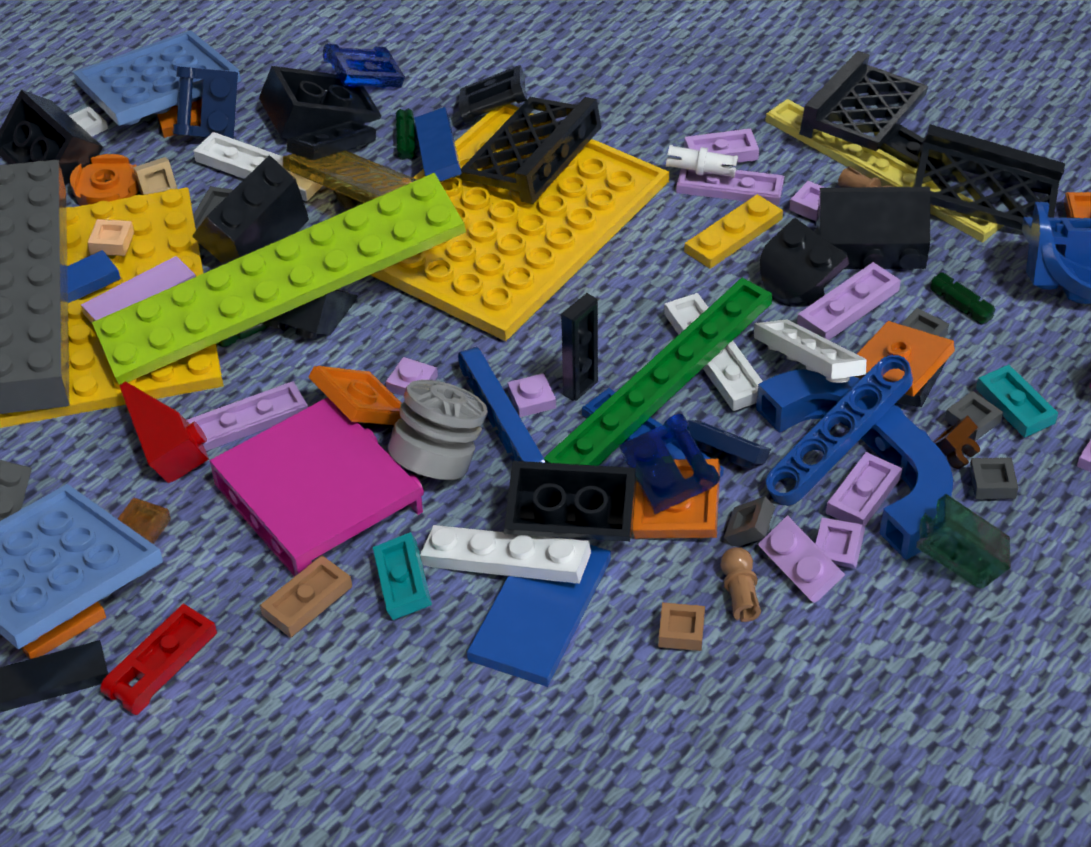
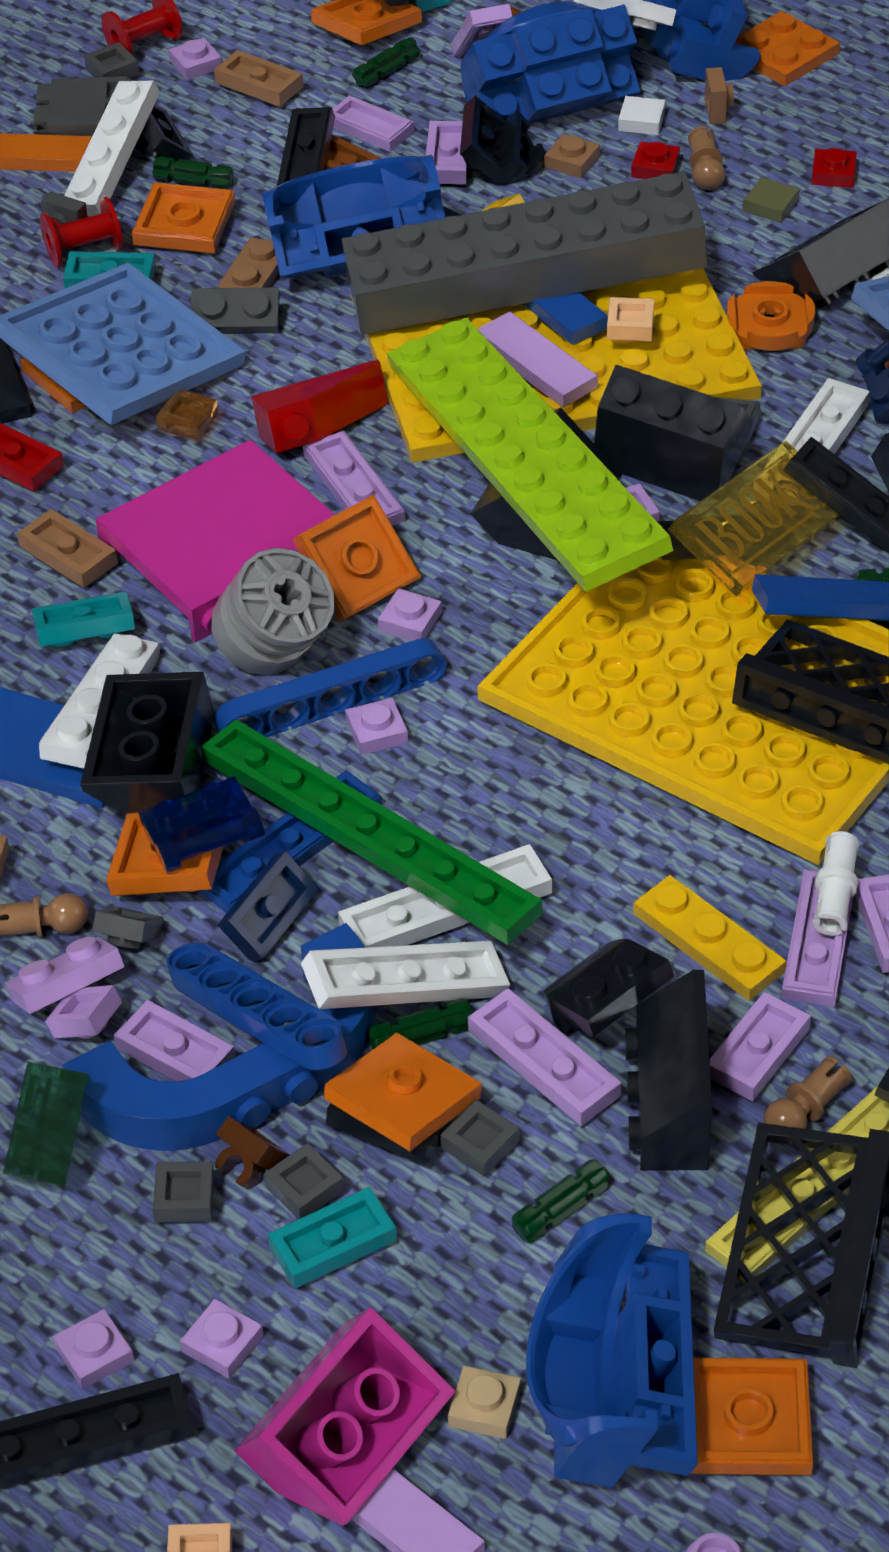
camera: 90 degrees right, 0 degrees up
(155, 176) = (769, 353): tan plate -> none
(580, 347) = (394, 726): black tile -> none

